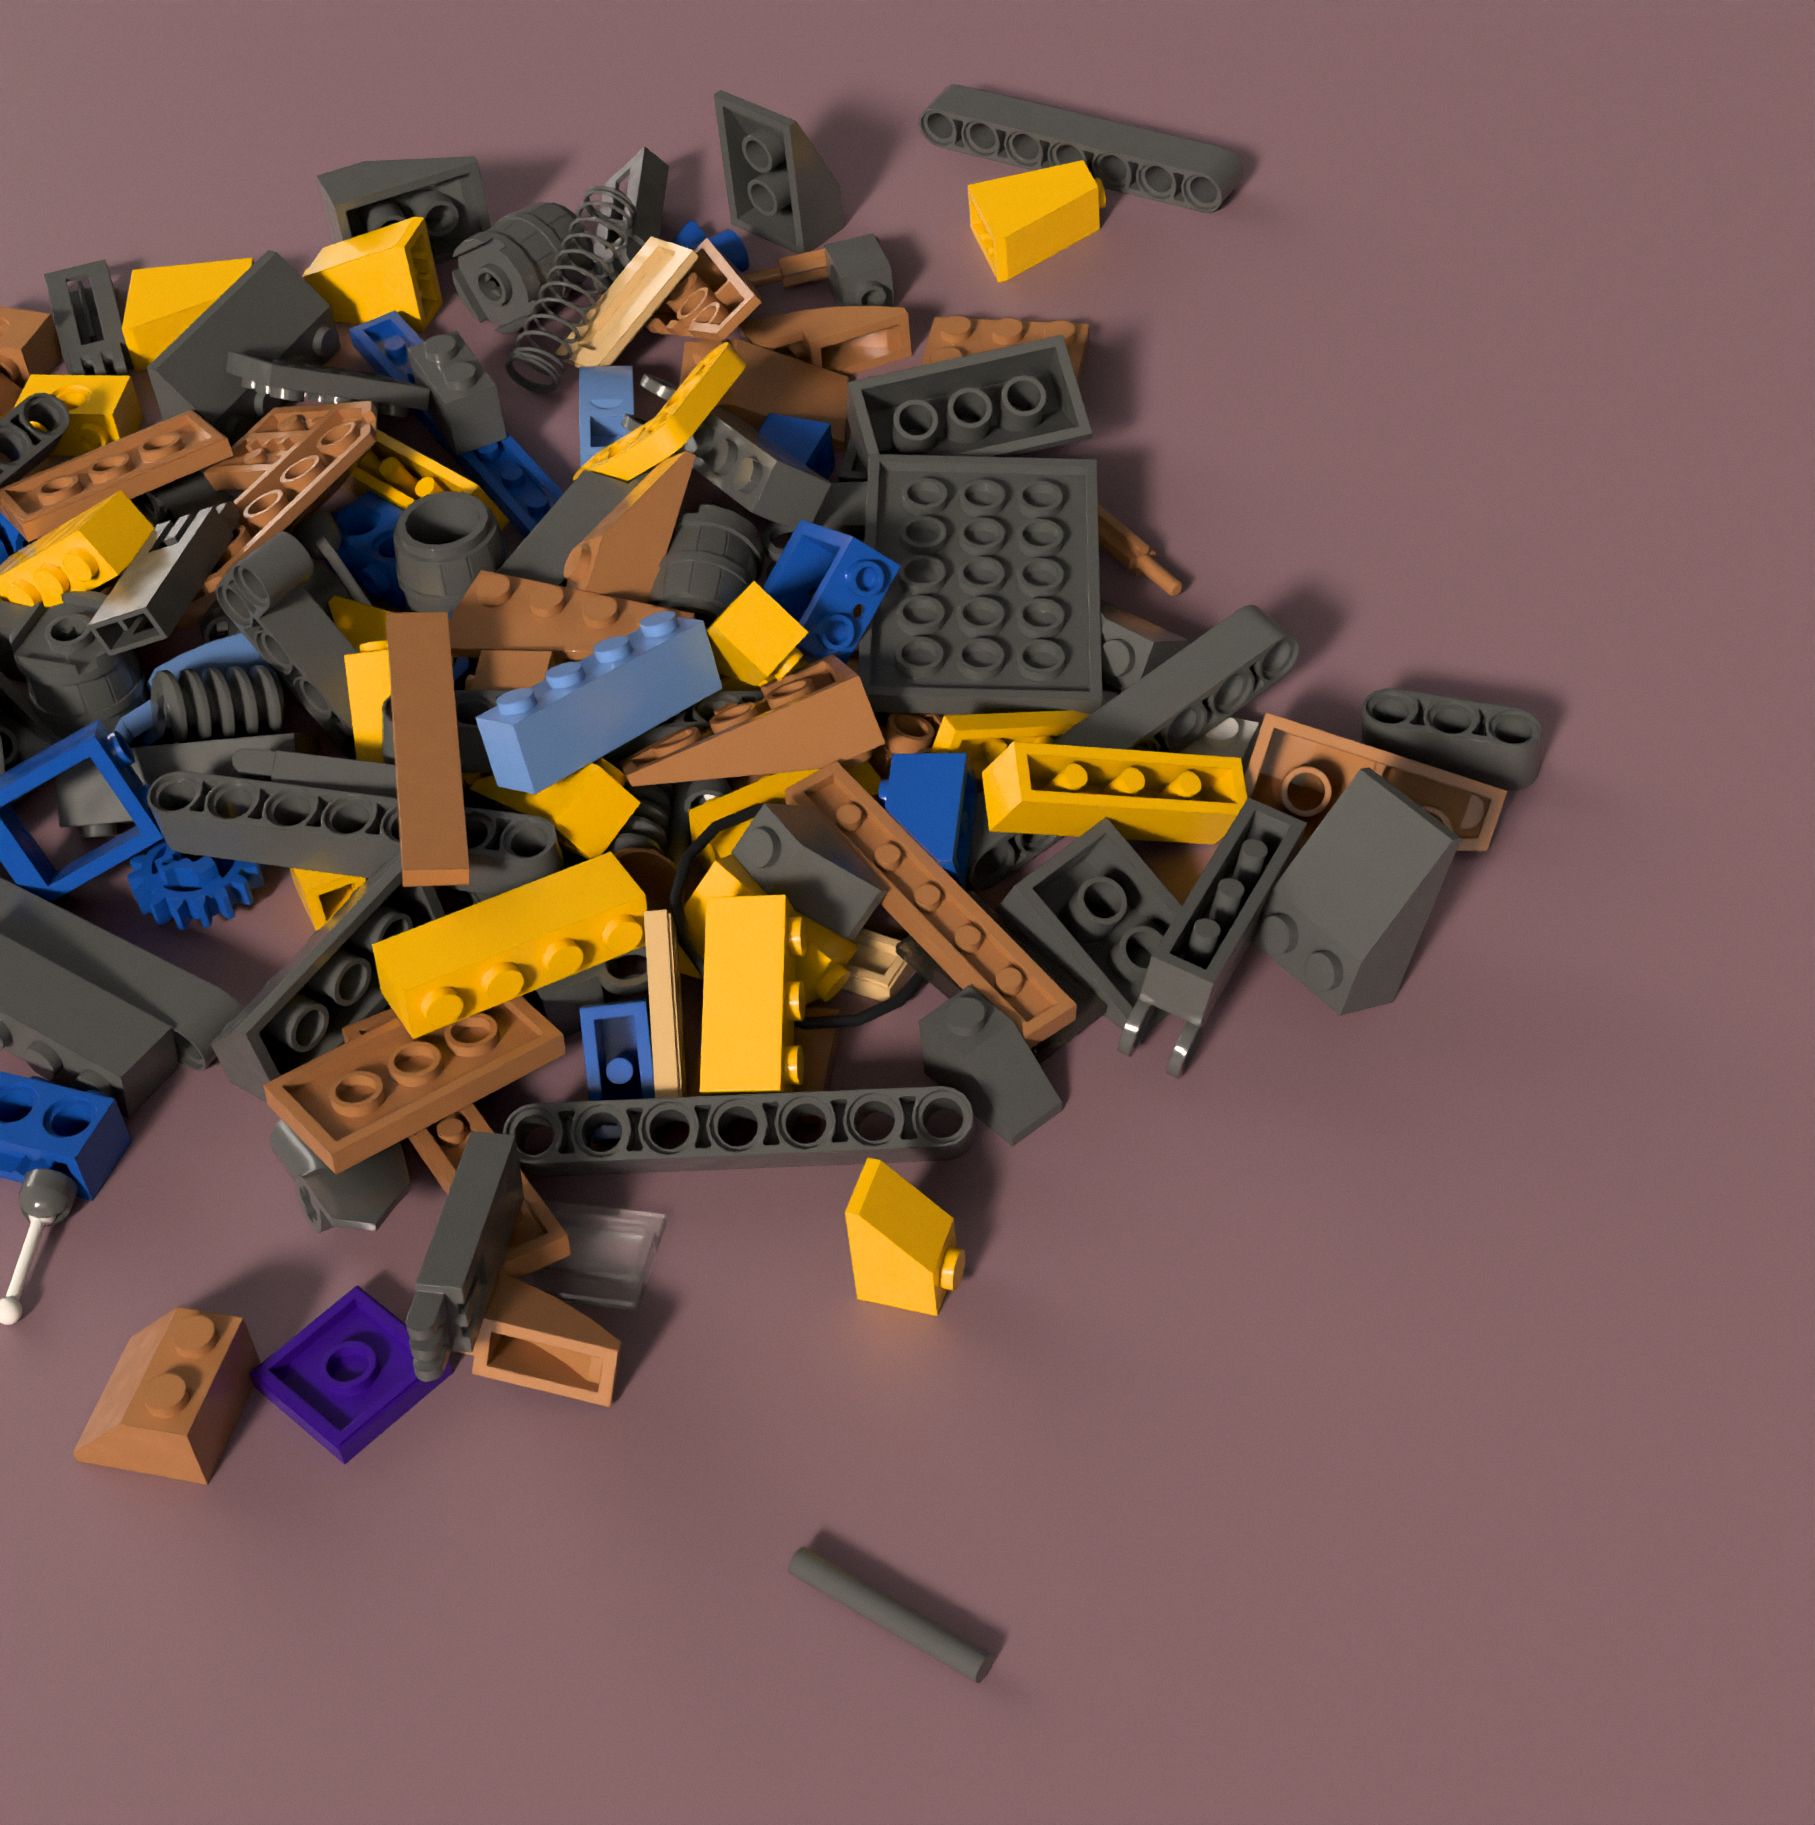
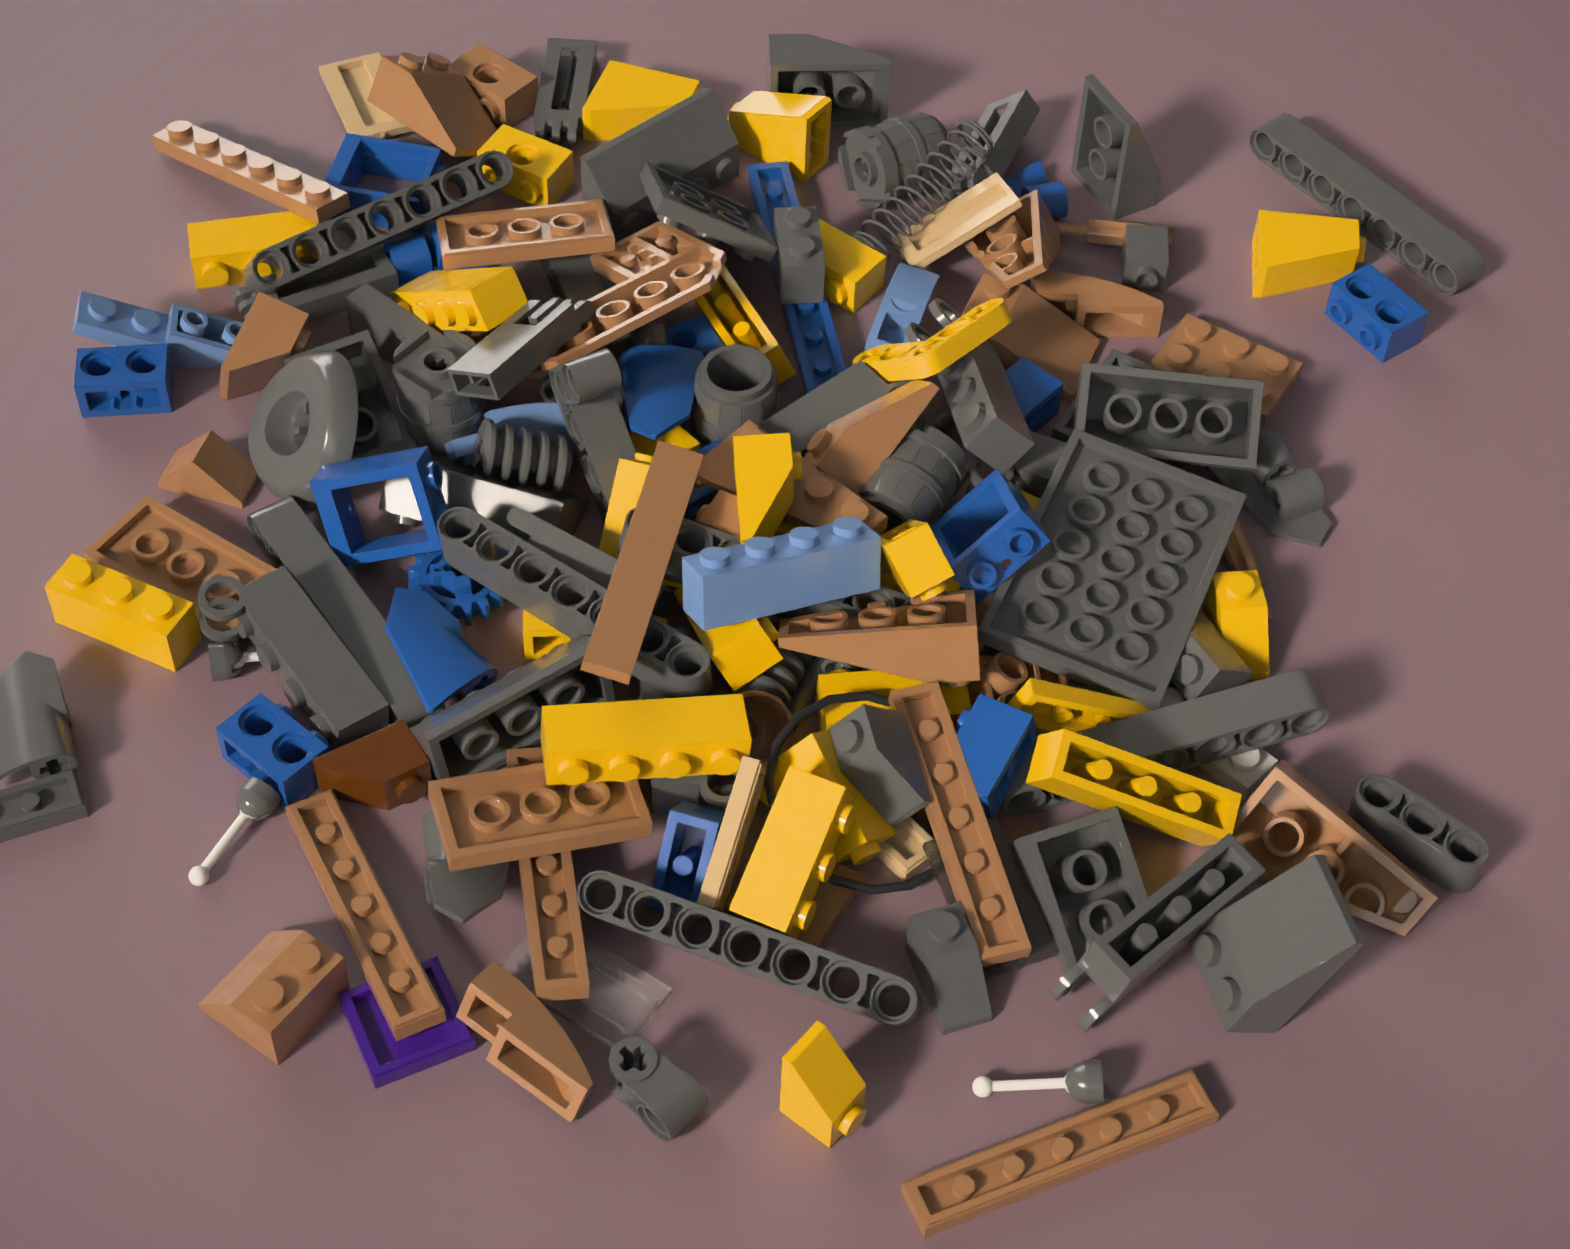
camera: 15 degrees right, 5 degrees up
(186, 1109) = (376, 769): none -> reddish brown slope
(201, 949) = (435, 649): none -> blue panel
(246, 1272) = (365, 915): none -> medium nougat tile
(355, 575) = (657, 387): none -> blue panel
(465, 1253) = (507, 977): dark grey hinge -> none
(529, 395) = (851, 269): none -> yellow slope
(530, 614) = (764, 482): none -> yellow slope
(704, 1328) = (659, 1094): none -> dark grey piece
(1133, 460) = (1280, 493): none -> dark grey panel
(1146, 248) = (1376, 313): none -> blue brick
(1146, 583) = (1240, 614): none -> yellow slope
(1201, 1130) = (1081, 1082): none -> hinge
(1206, 1218) = (1058, 1153): none -> medium nougat tile

